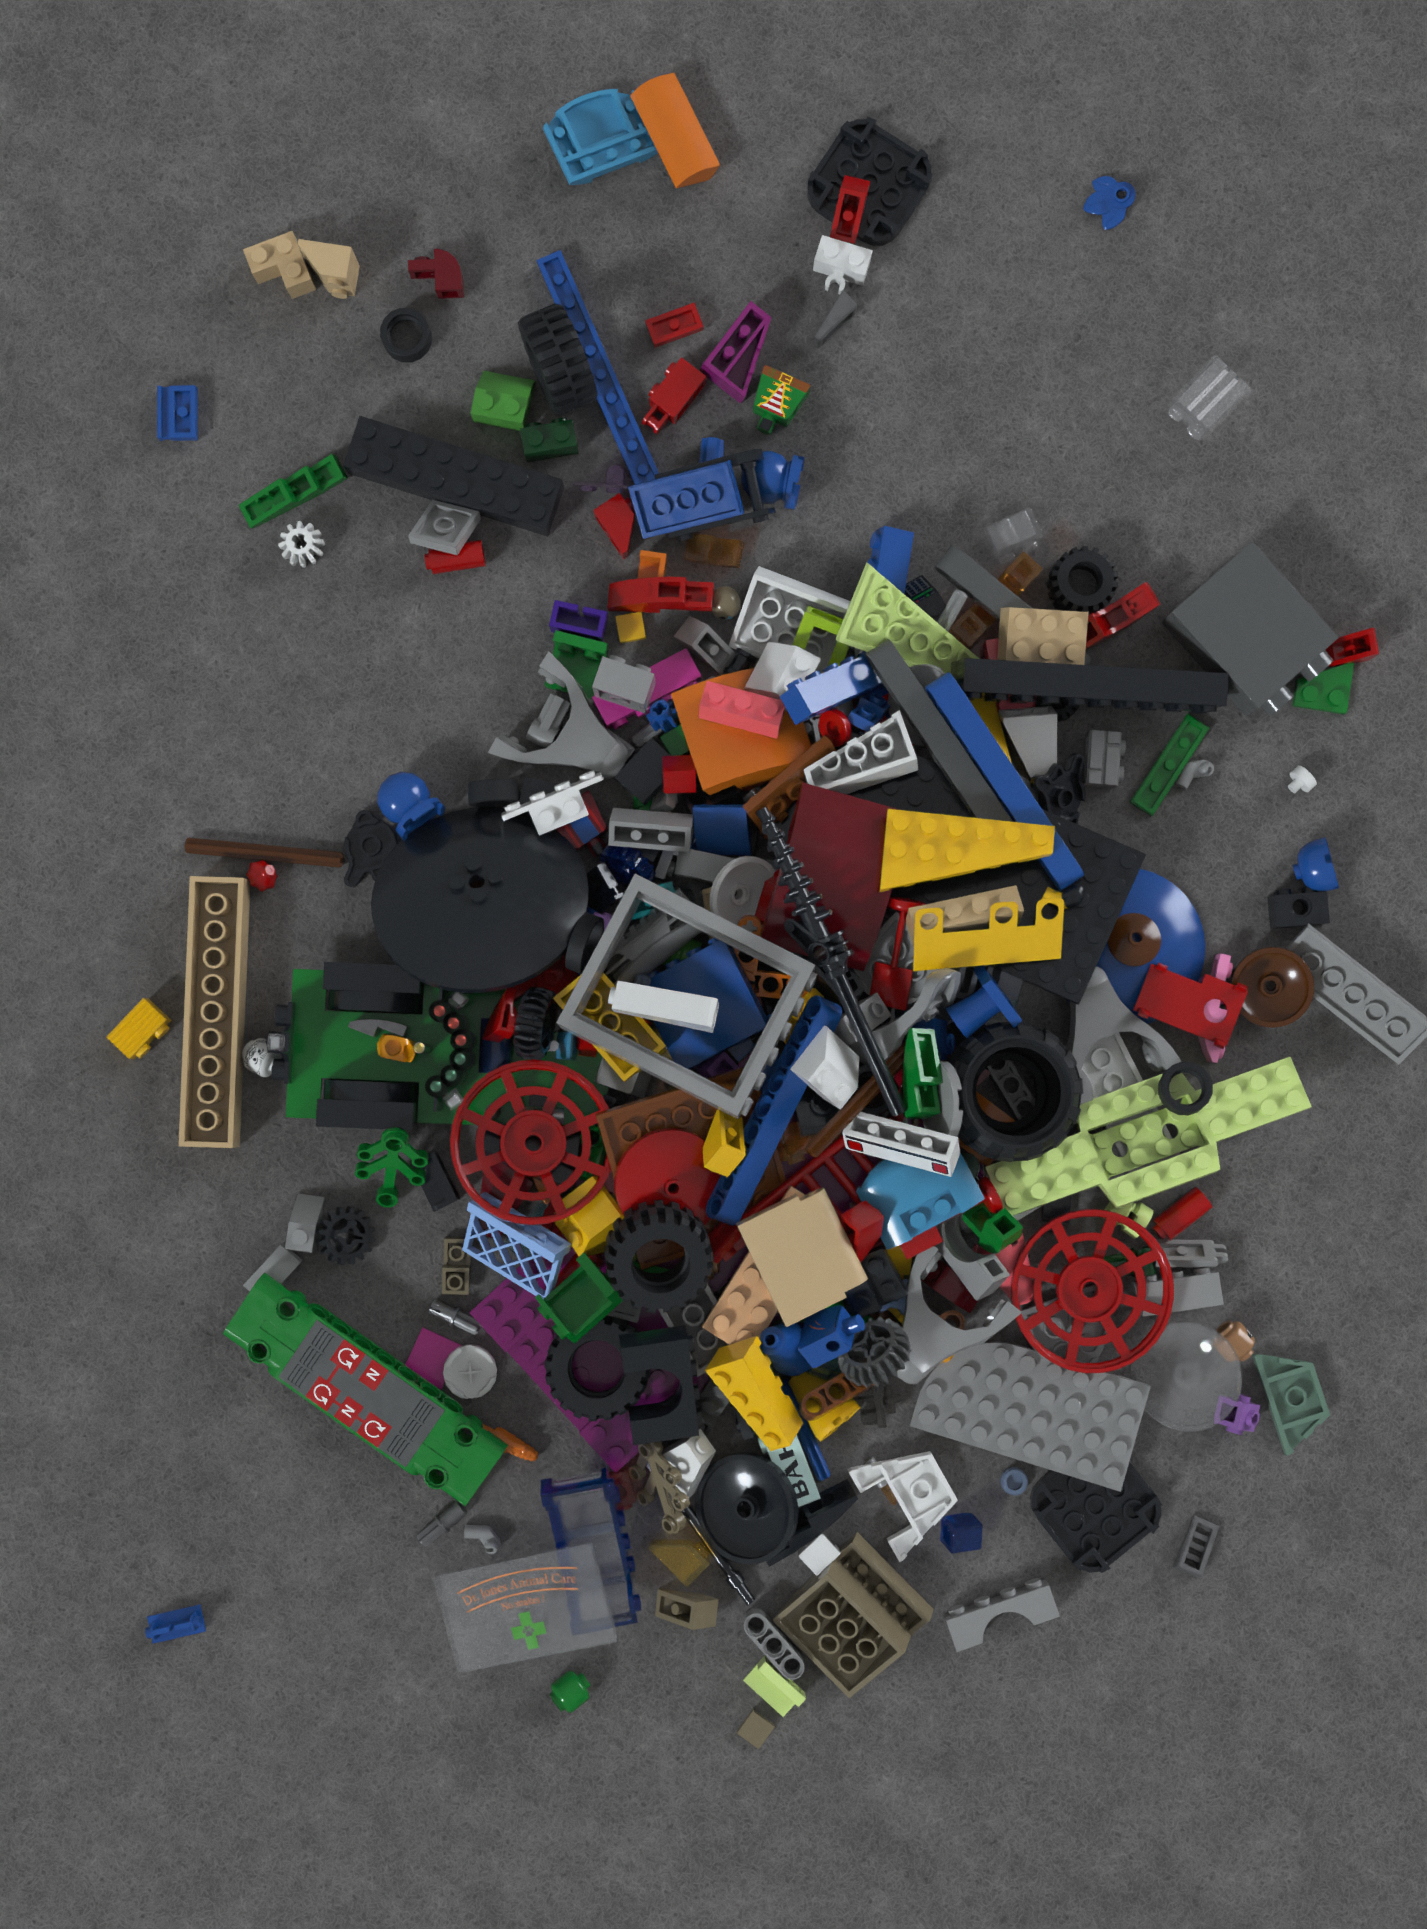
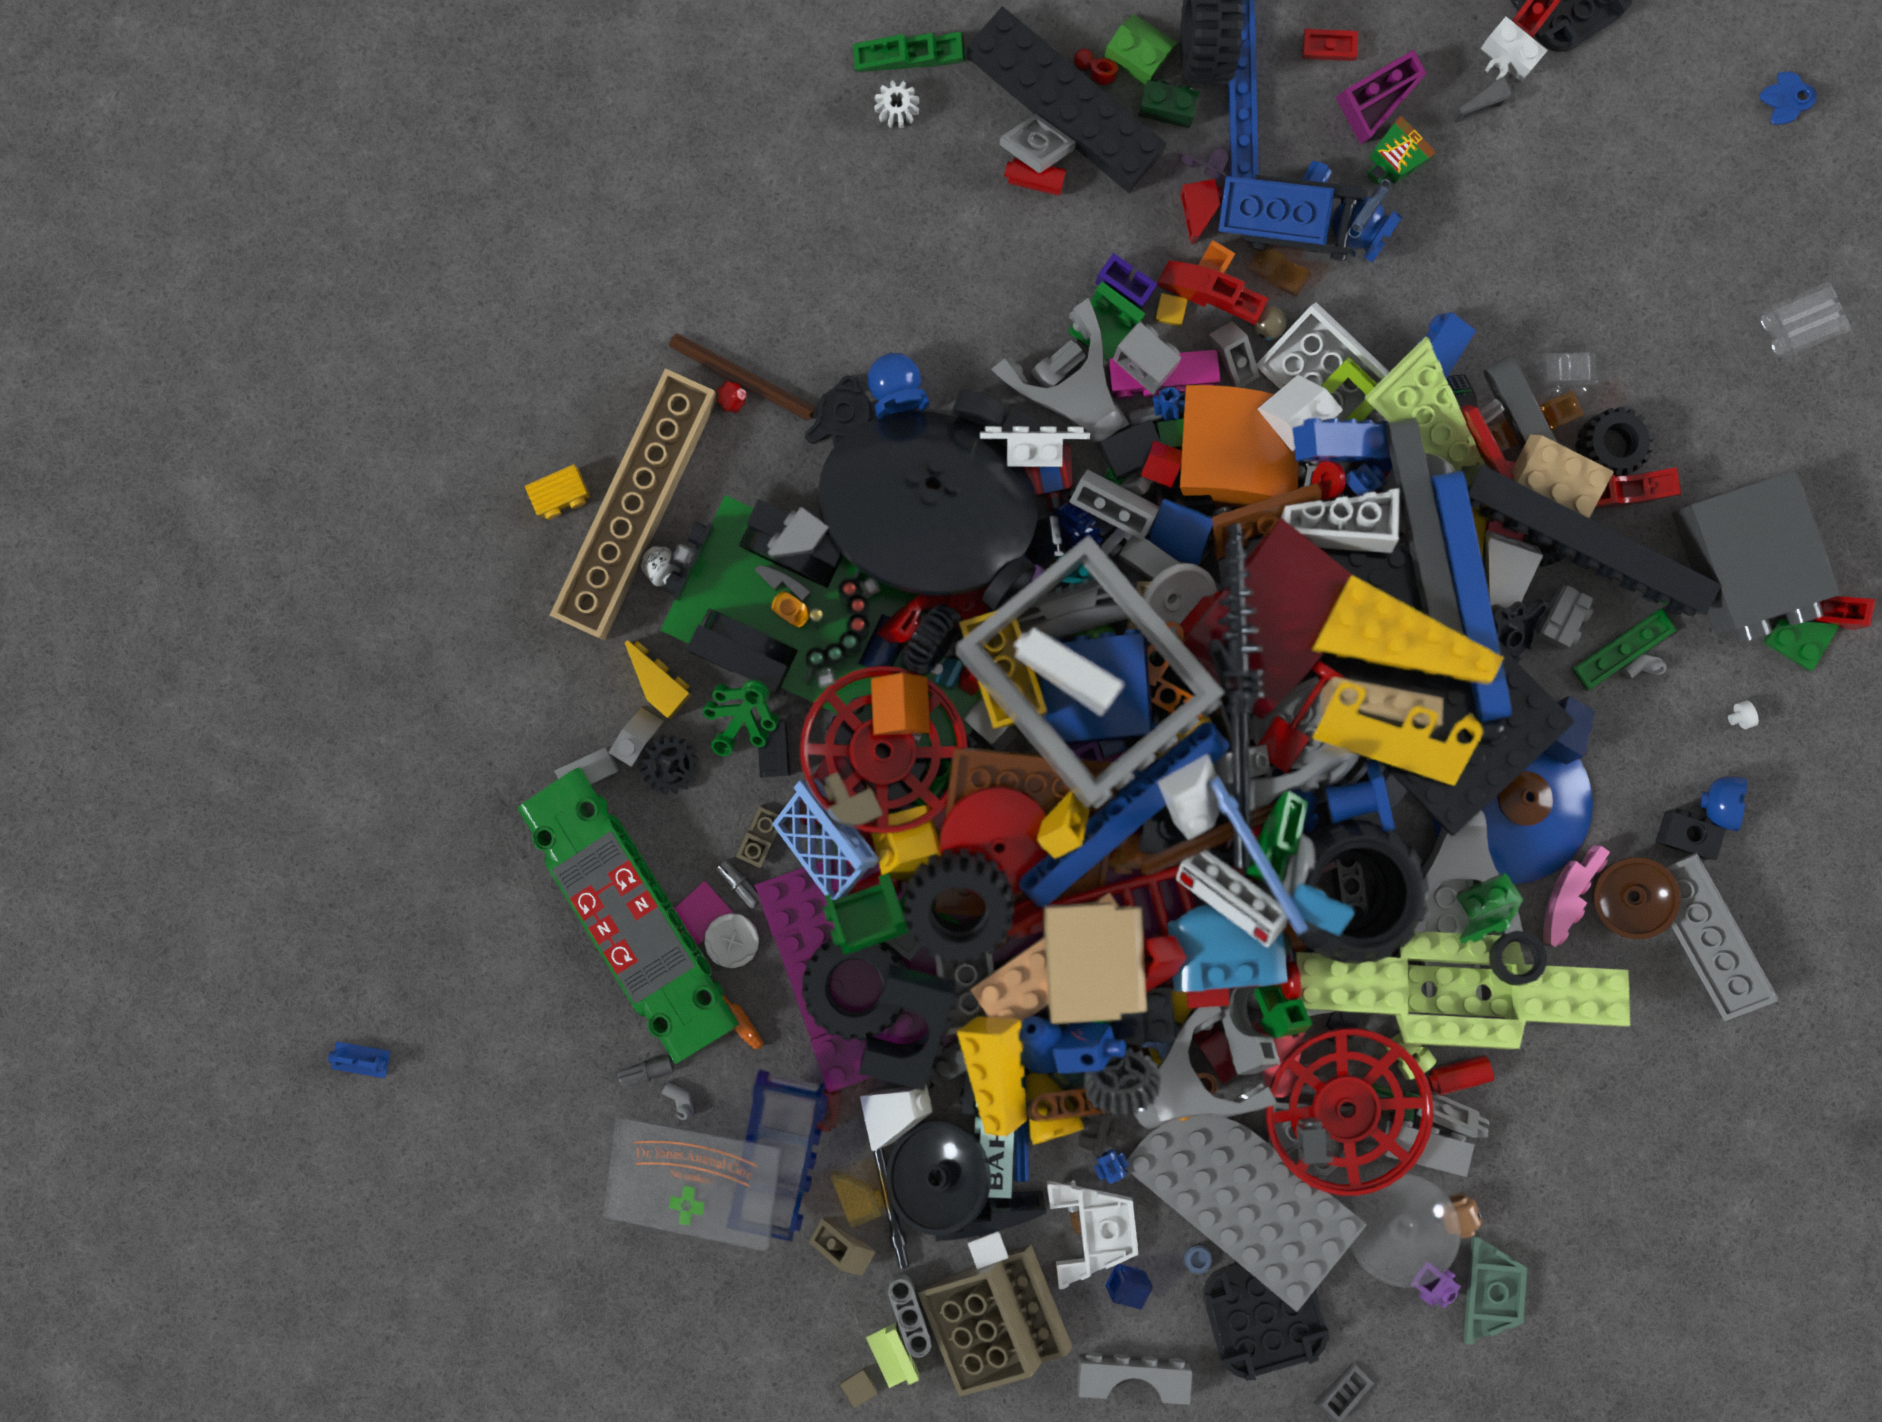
camera: 20 degrees right, 0 degrees up
(306, 1168) = (658, 686): none -> yellow slope
(375, 981) = (799, 537): none -> light grey slope
(476, 434) = (1102, 70): none -> red plate
(527, 1210) = (850, 811): none -> dark tan brick
(531, 1095) = (900, 704): none -> orange slope
(570, 1691) = (700, 1279): green head -> none
(665, 1482) = (870, 1088): dark tan plant -> none
(674, 394) = (1303, 109): red brick -> none
(740, 662) = (1262, 383): black bush -> none
(741, 709) = (1249, 426): coral brick -> none
(770, 464) = (1369, 208): none -> sand blue piece
(863, 1064) = (1228, 805): none -> medium blue bar
(900, 1430) = (1111, 1166): none -> blue gear
(963, 633) = (1485, 441): none -> red tile
(981, 1124) = (1320, 910): none -> dark azure slope
(1070, 1333) = (1313, 1142): none -> dark grey brick
(1141, 1051) = (1489, 907): none -> green bracket
(1154, 870) = (1573, 742): none -> dark blue brick
(1182, 1003) = (1546, 875): red piece -> none

